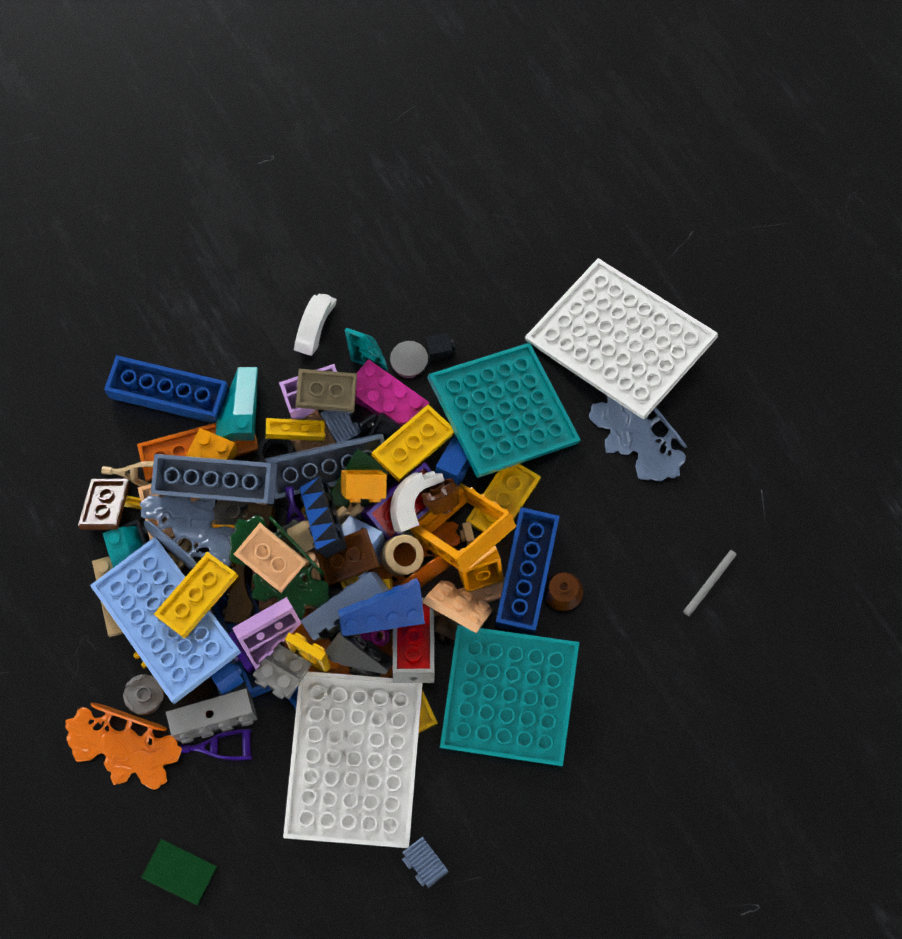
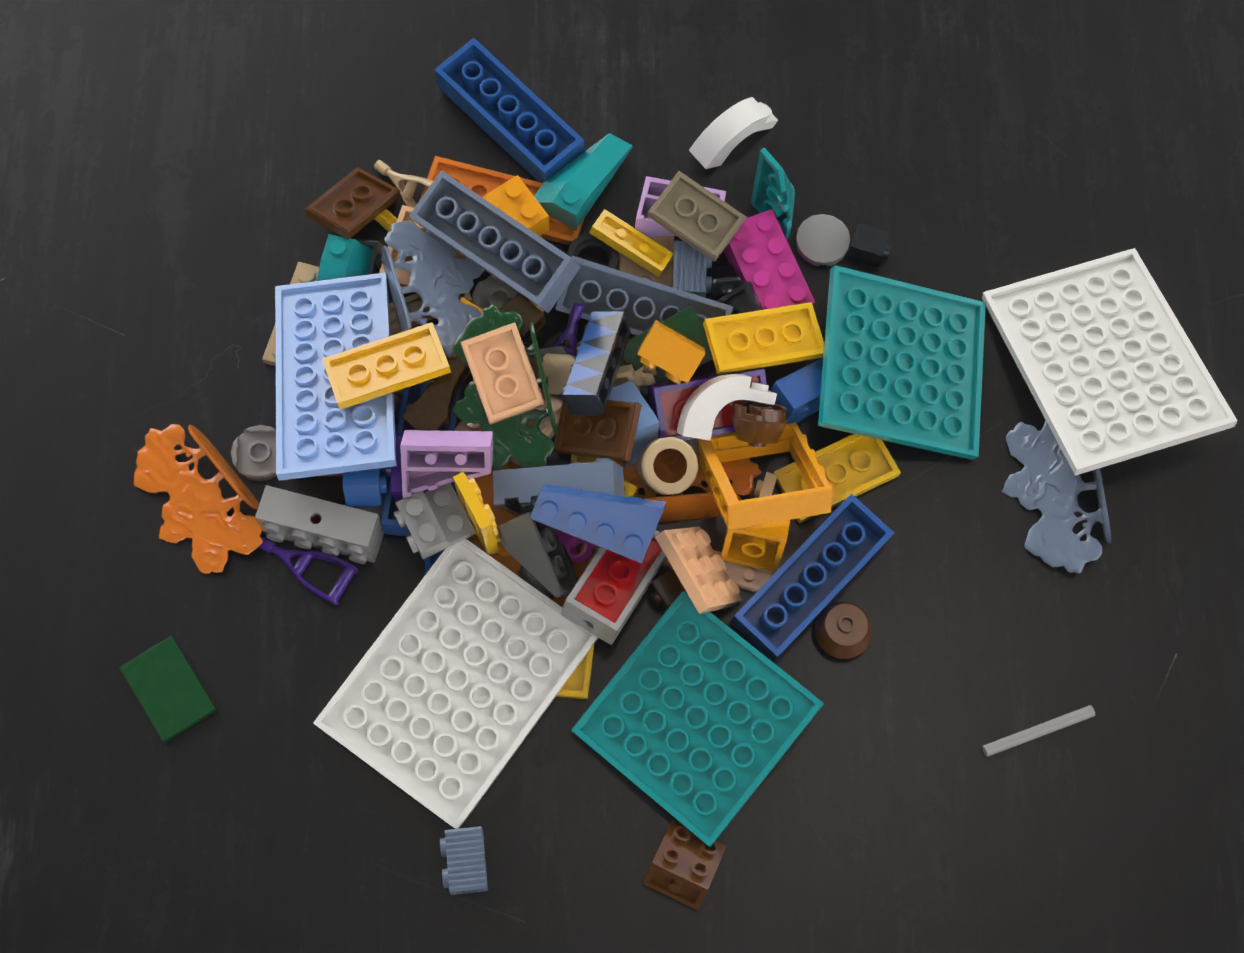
camera: 25 degrees right, 0 degrees up
(554, 786) = (684, 866): none -> reddish brown bracket

